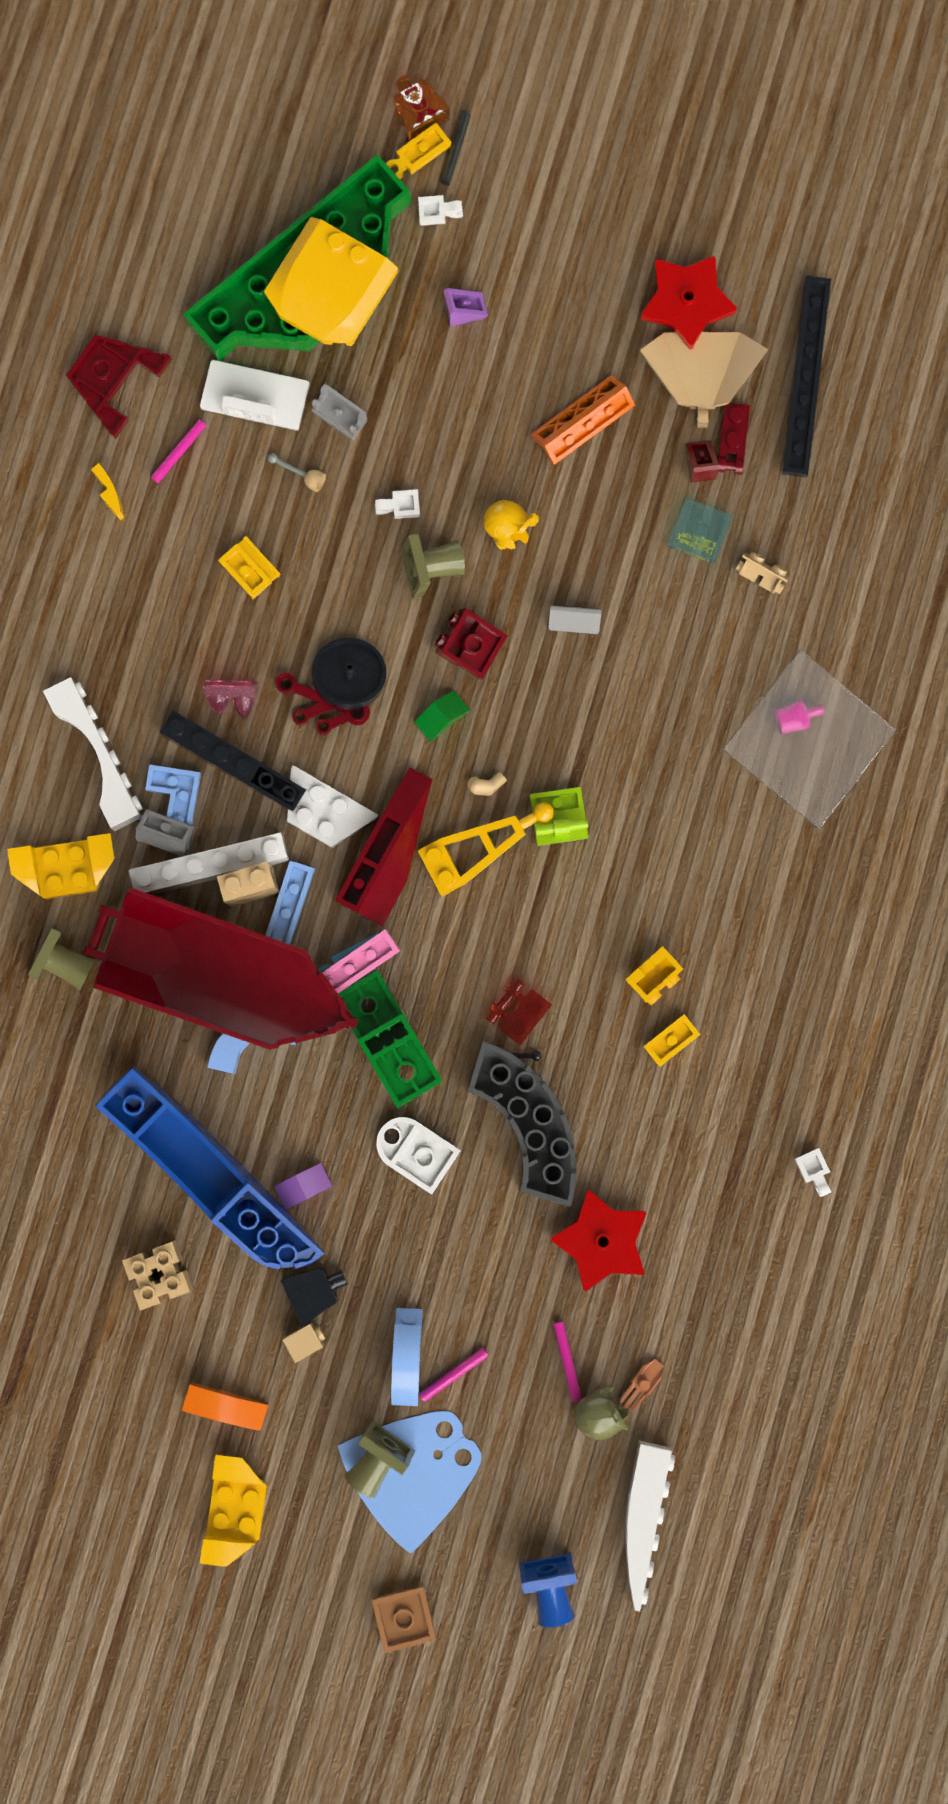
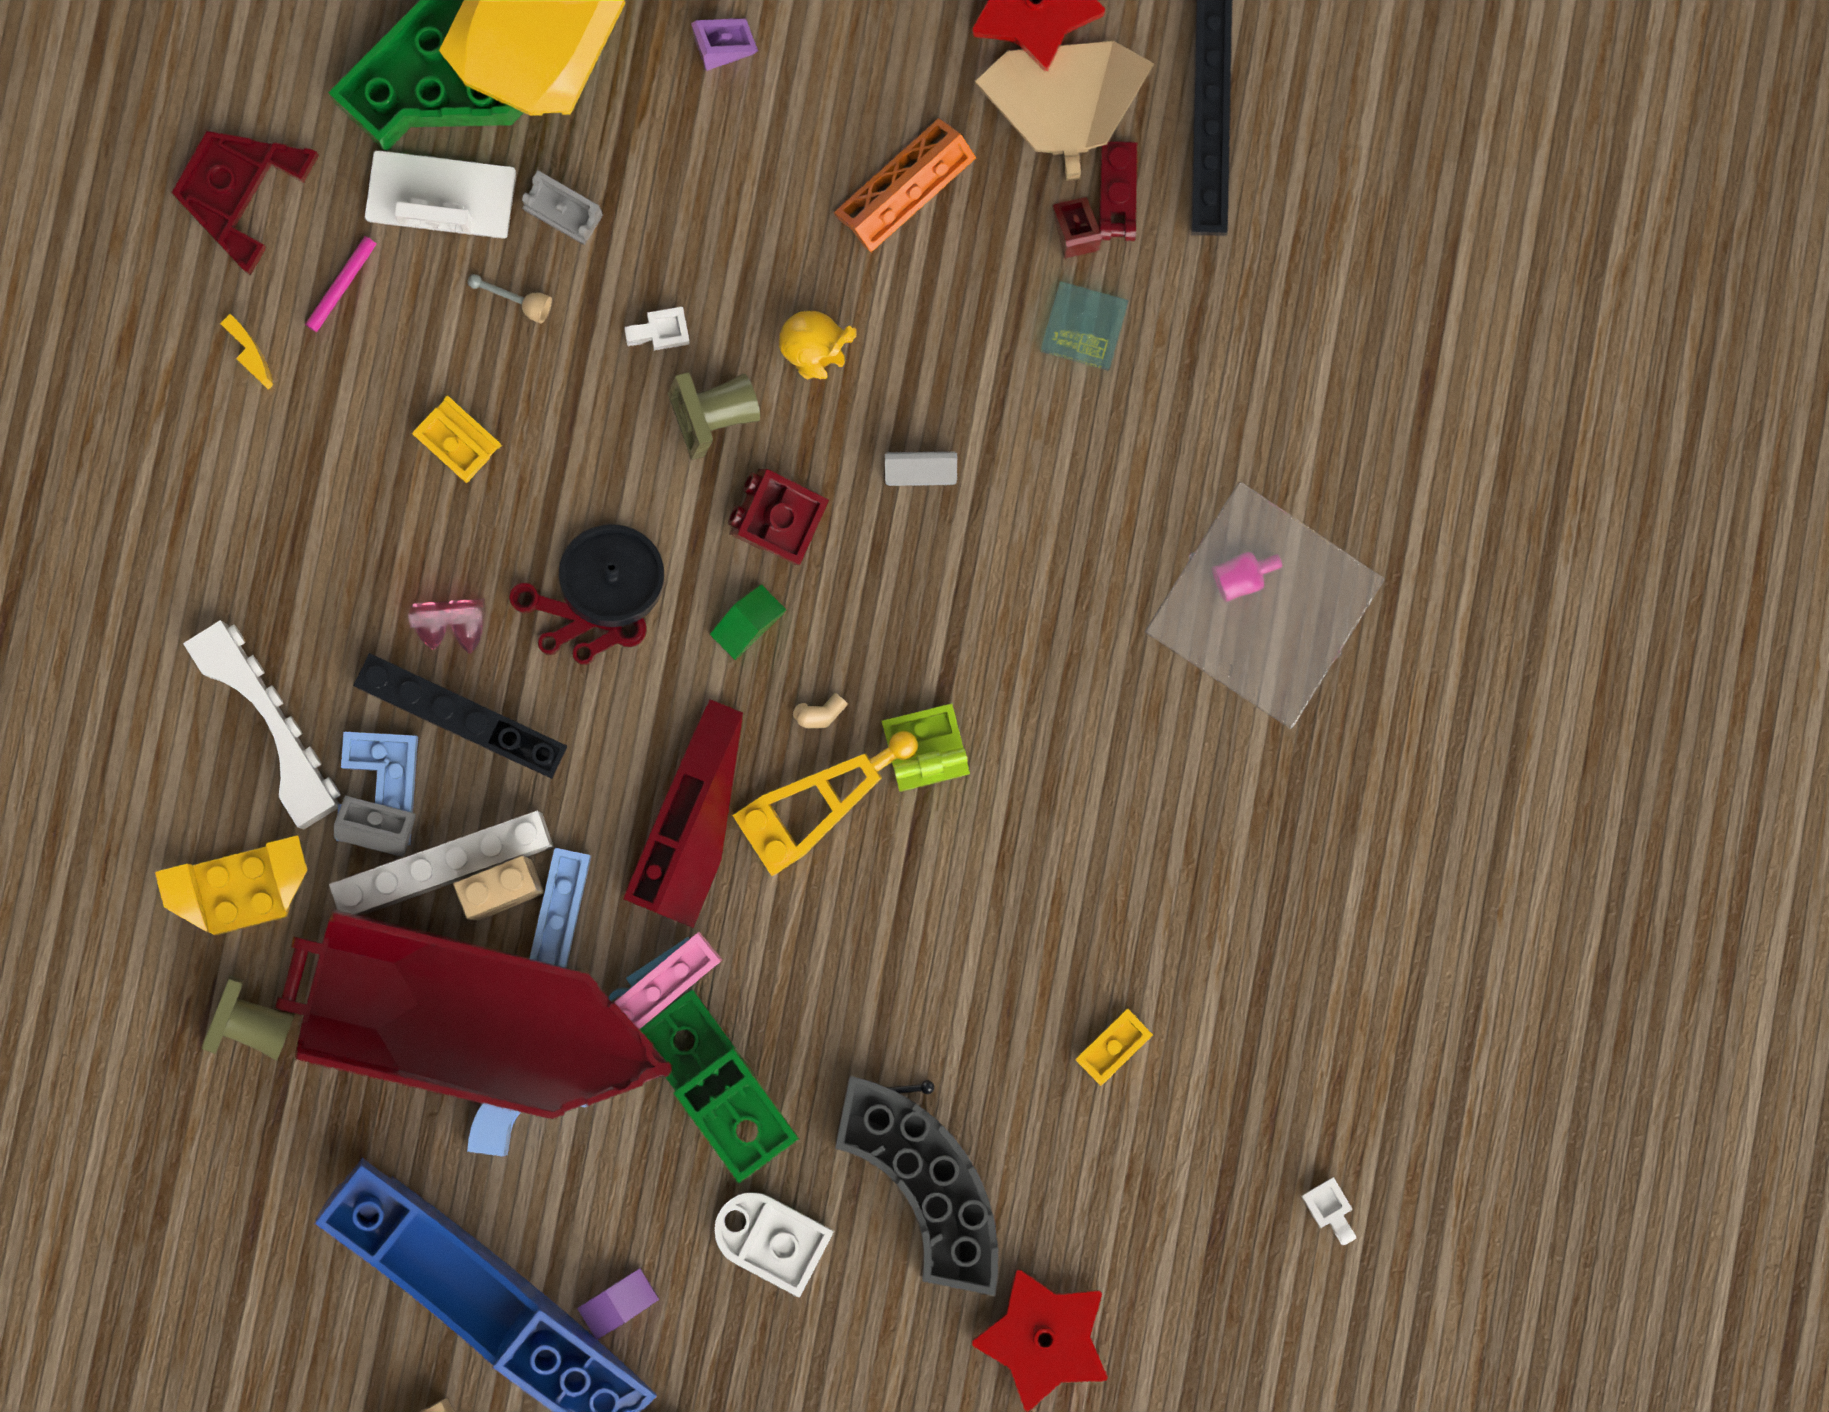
camera: 10 degrees left, 0 degrees up
(326, 812) = (598, 772): white wing -> none
(526, 1015) = (906, 1033): clear red plate -> none
(655, 974) = (1080, 958): yellow cylinder -> none
(771, 575) = (1190, 379): tan hinge -> none

